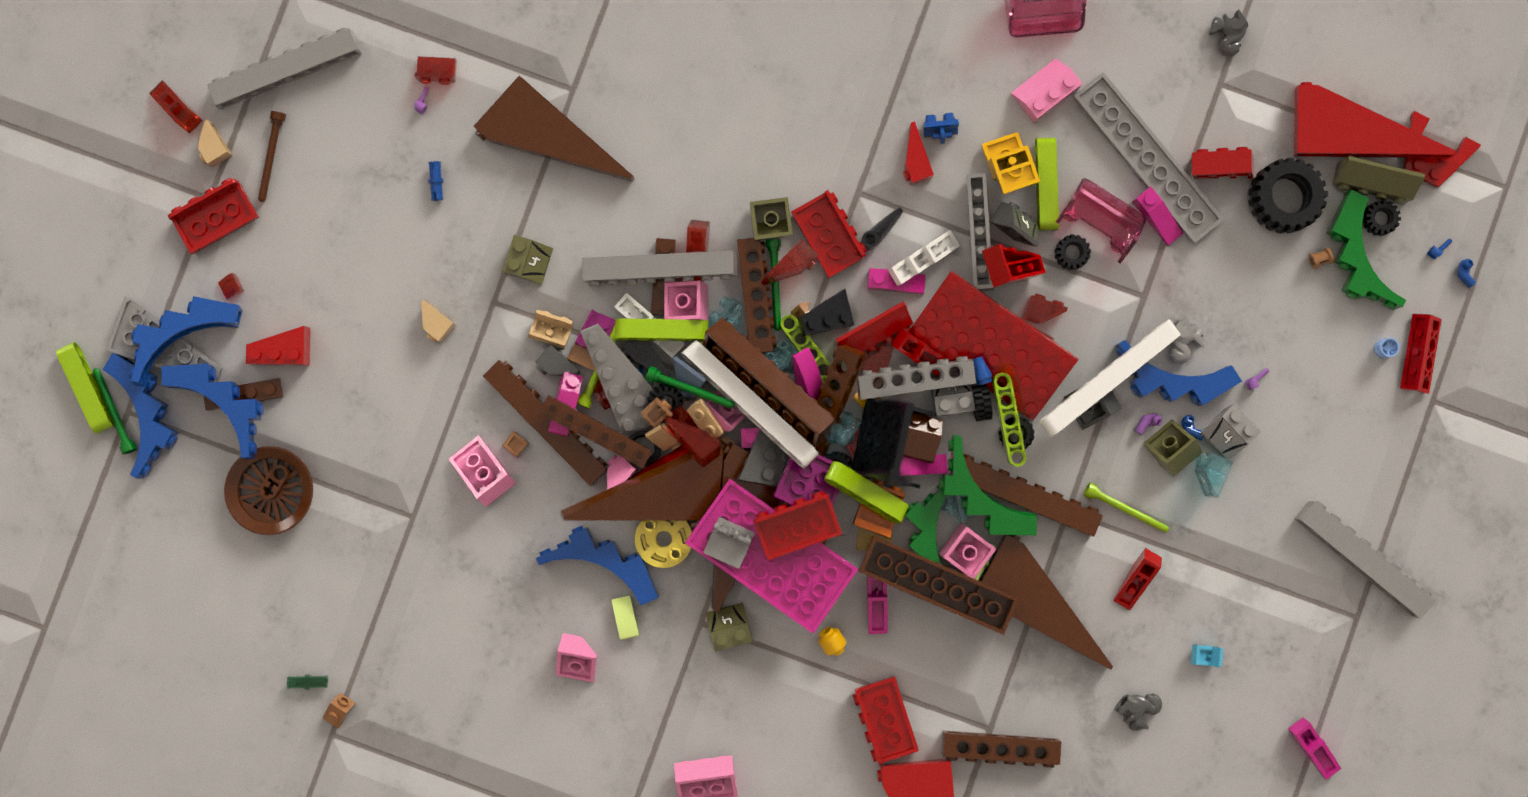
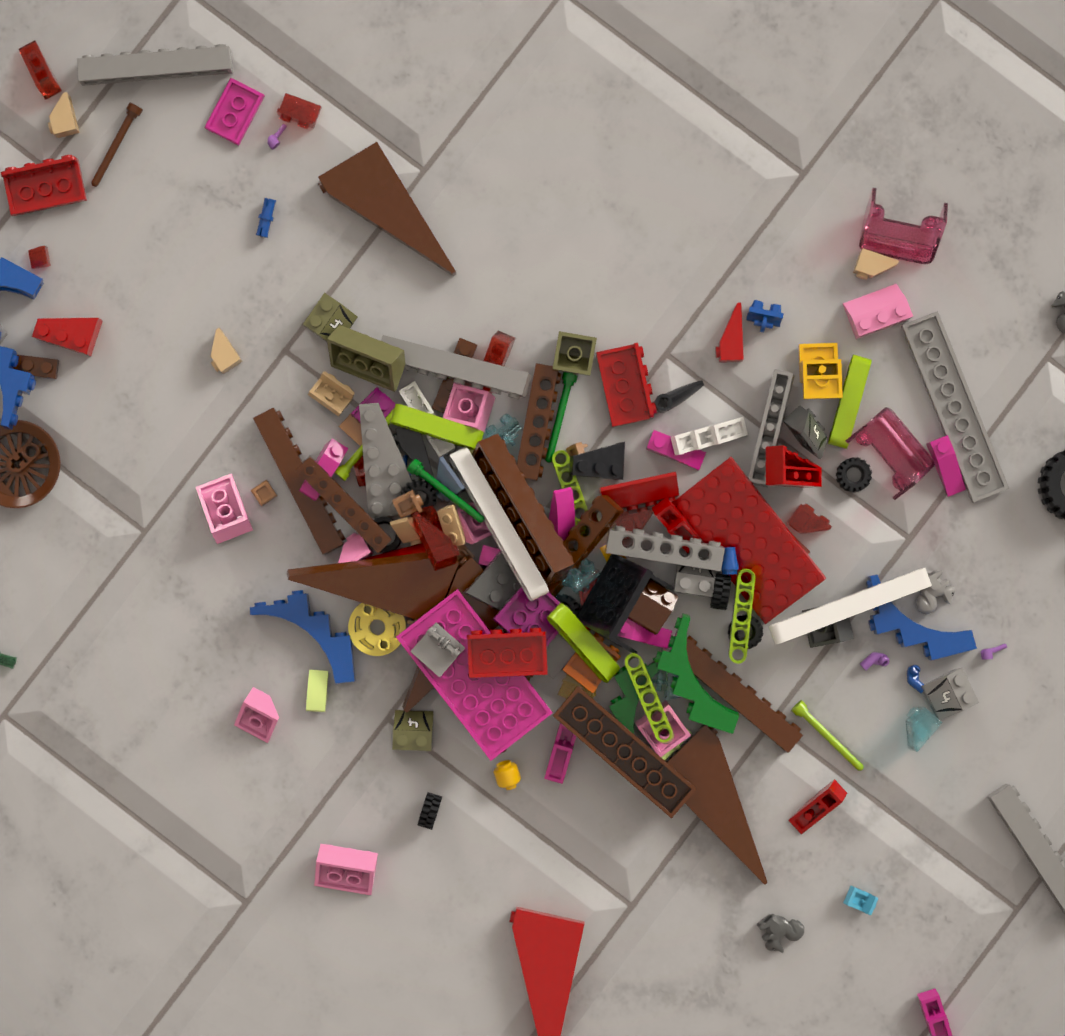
camera: 15 degrees right, 0 degrees up
(338, 710) = (17, 693): medium nougat bracket -> none
(374, 89) = (234, 111): none -> dark pink tile
(555, 363) = (325, 427): dark grey slope -> none
(573, 284) = (366, 357): none -> olive slope
(768, 699) = (429, 810): none -> black tyre
(782, 355) = (544, 487): clear light blue hips -> none
(793, 263) = (581, 403): clear red slope -> none
(885, 720) = (534, 865): red bracket -> none
(942, 516) = (642, 691): none -> lime beam
(1027, 46) = (871, 264): none -> tan slope
(1051, 747) = (680, 951): reddish brown brick -> none
(1173, 447) = (891, 691): olive slope -> none
(1223, 163) = (1024, 434): red wedge -> none

